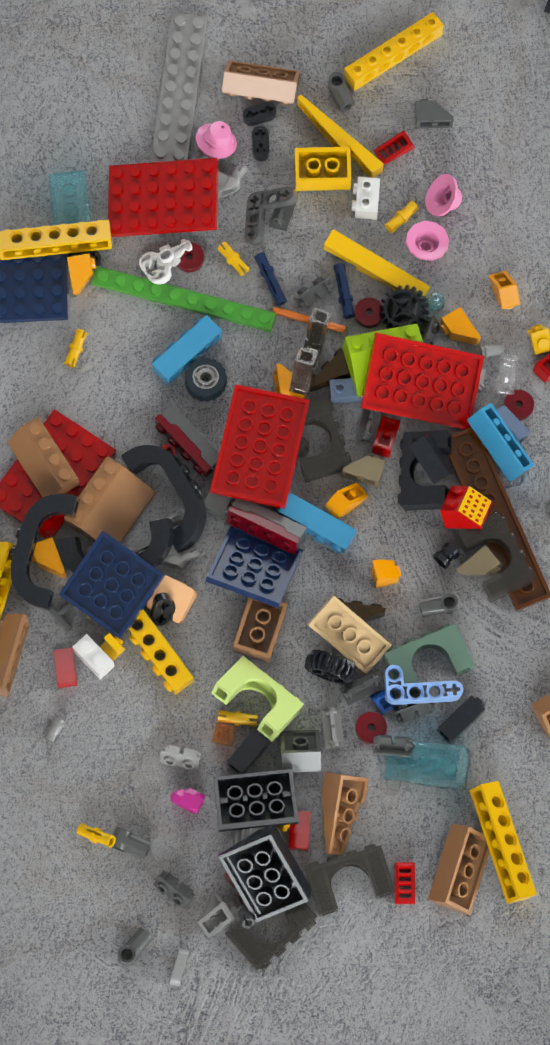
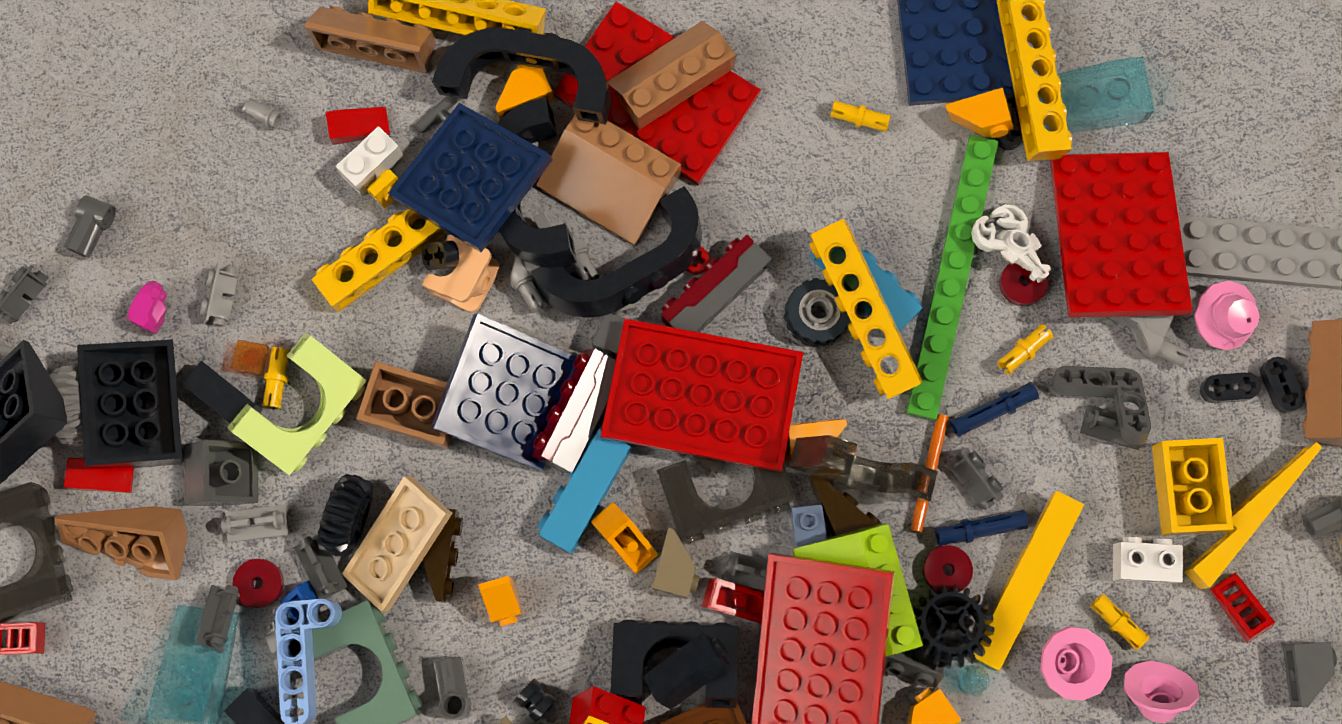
camera: 90 degrees right, 5 degrees up
(96, 835) = (98, 176): yellow pin -> none
(254, 335) = (823, 244): none -> yellow brick

